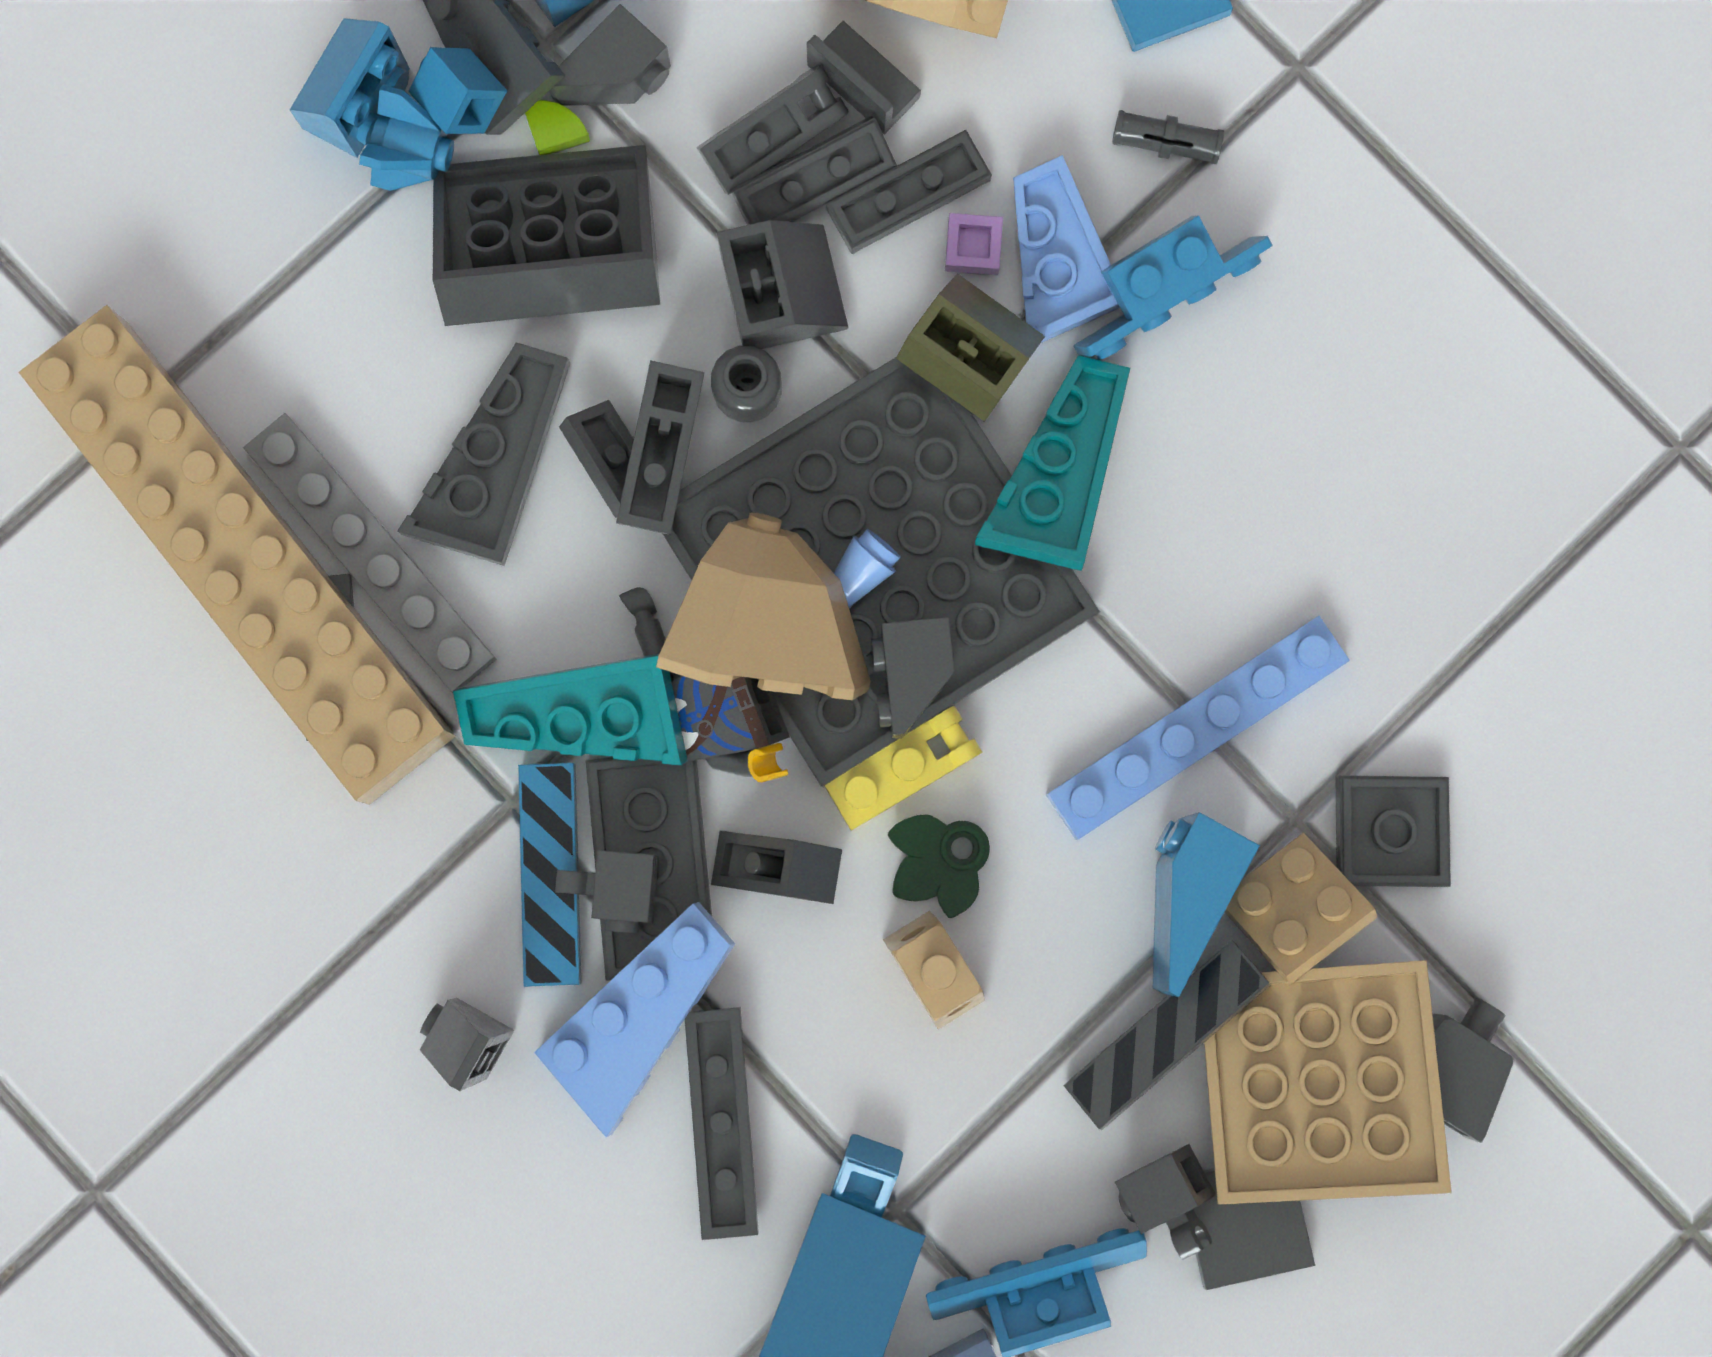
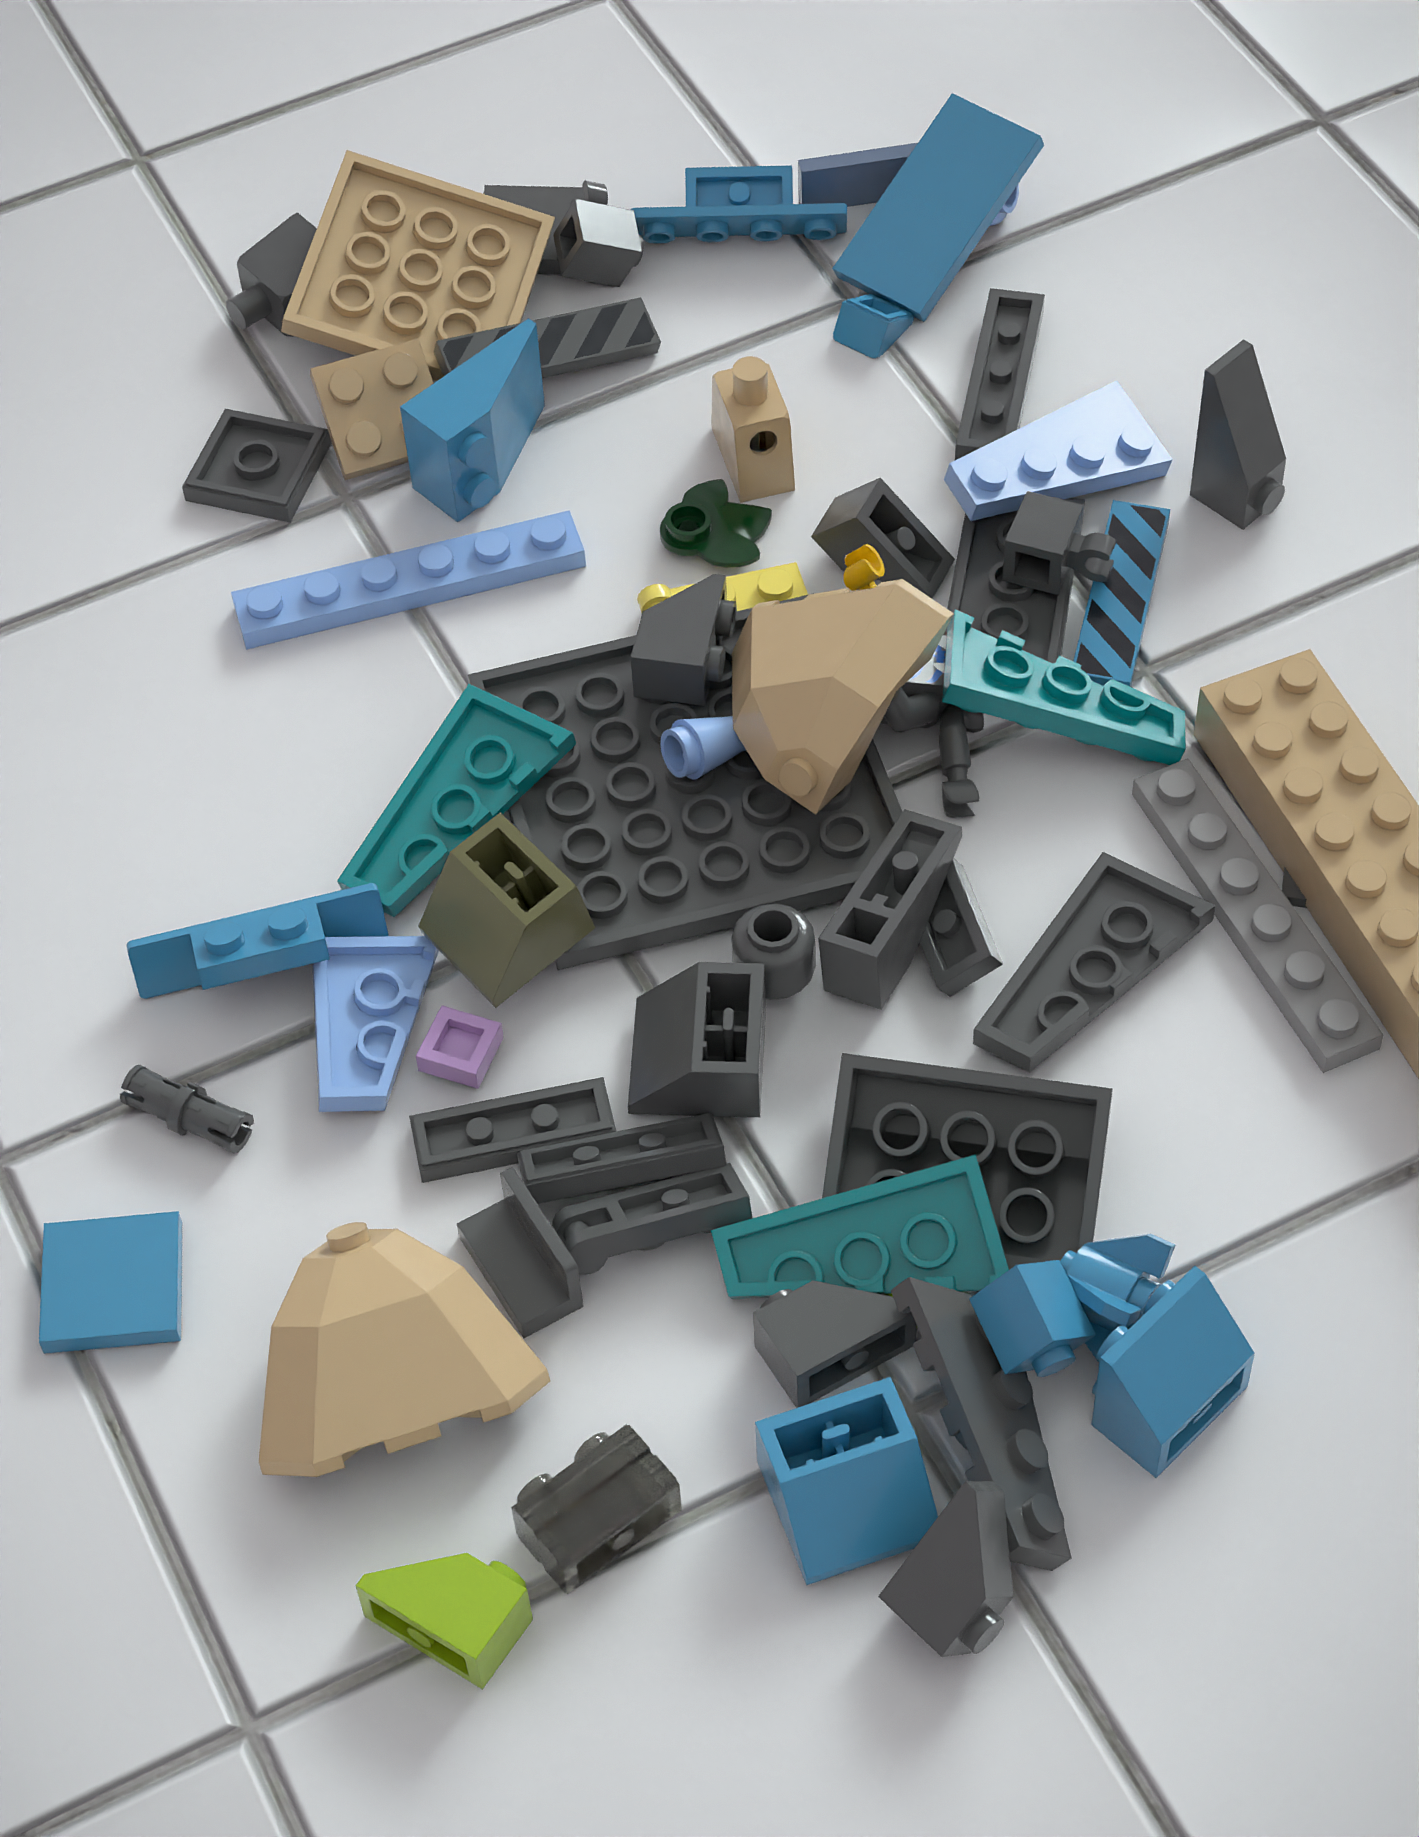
camera: 155 degrees left, 30 degrees down
(579, 152) = (871, 1237): none -> teal wing

